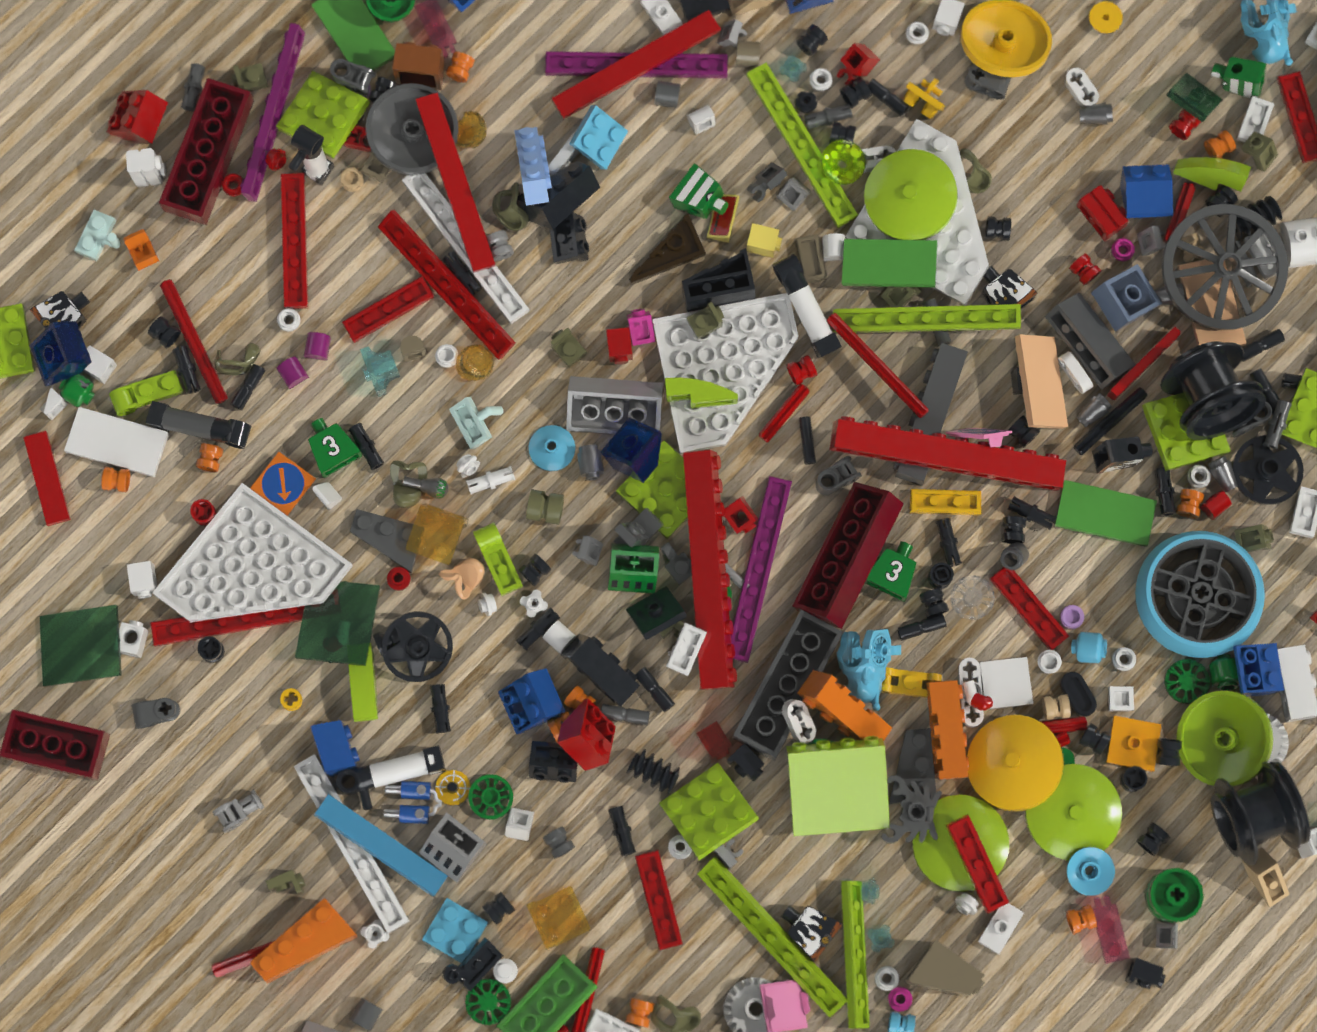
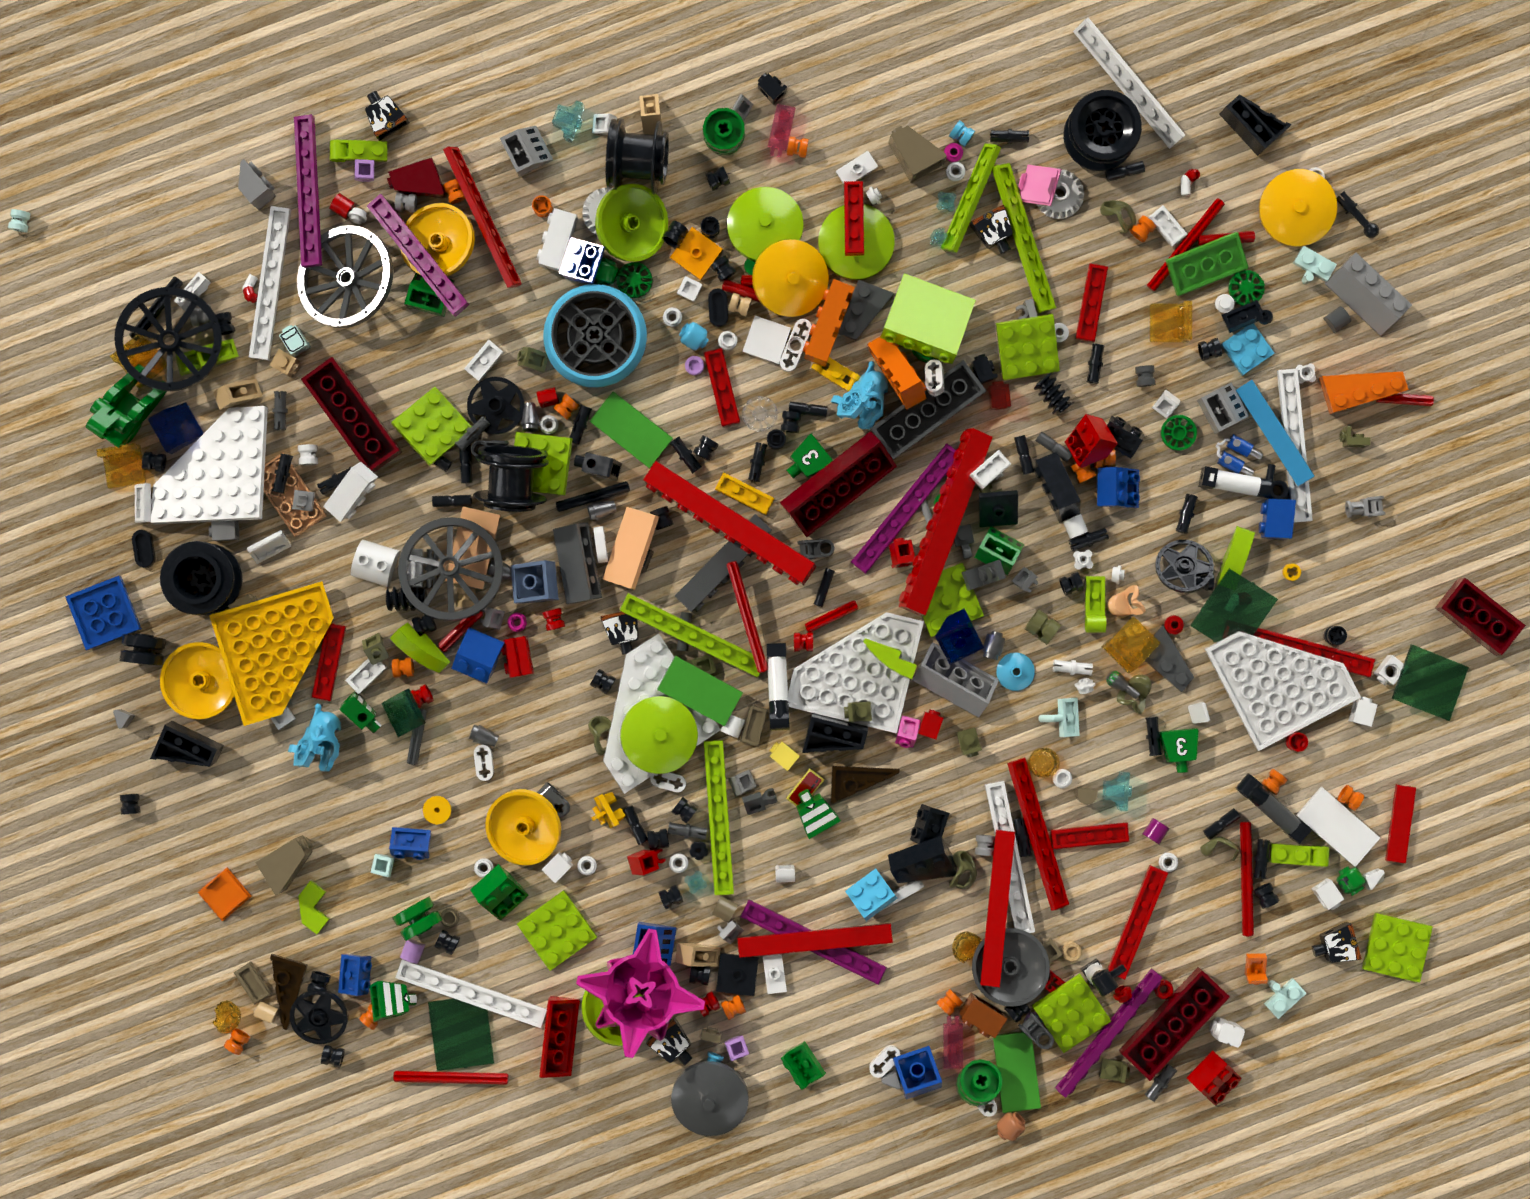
camera: 160 degrees left, 10 degrees up
(60, 352) = (1354, 911): clear blue slope -> none
(151, 712) = (1398, 608): dark grey piece -> none
(283, 483) = (1228, 736): piece -> none
(292, 372) = (1183, 819): magenta brick -> none
(452, 787) = (1202, 453): yellow piece -> none
(533, 165) = (935, 891): light blue brick -> none
(667, 94) = (801, 906): dark grey brick -> none
(848, 153) = (688, 780): clear neon green dish -> none
(916, 812) = (880, 274): dark grey animal -> none
(976, 699) = (796, 336): arm -> none
(993, 435) = (697, 527): bright pink piece -> none
(1011, 561) = (716, 427): flat silver brick -> none
(1102, 873) = (774, 168): medium azure dish -> none
(1144, 363) = (547, 526): red tile -> none
(1166, 79) = (415, 743): none -> dark grey axle

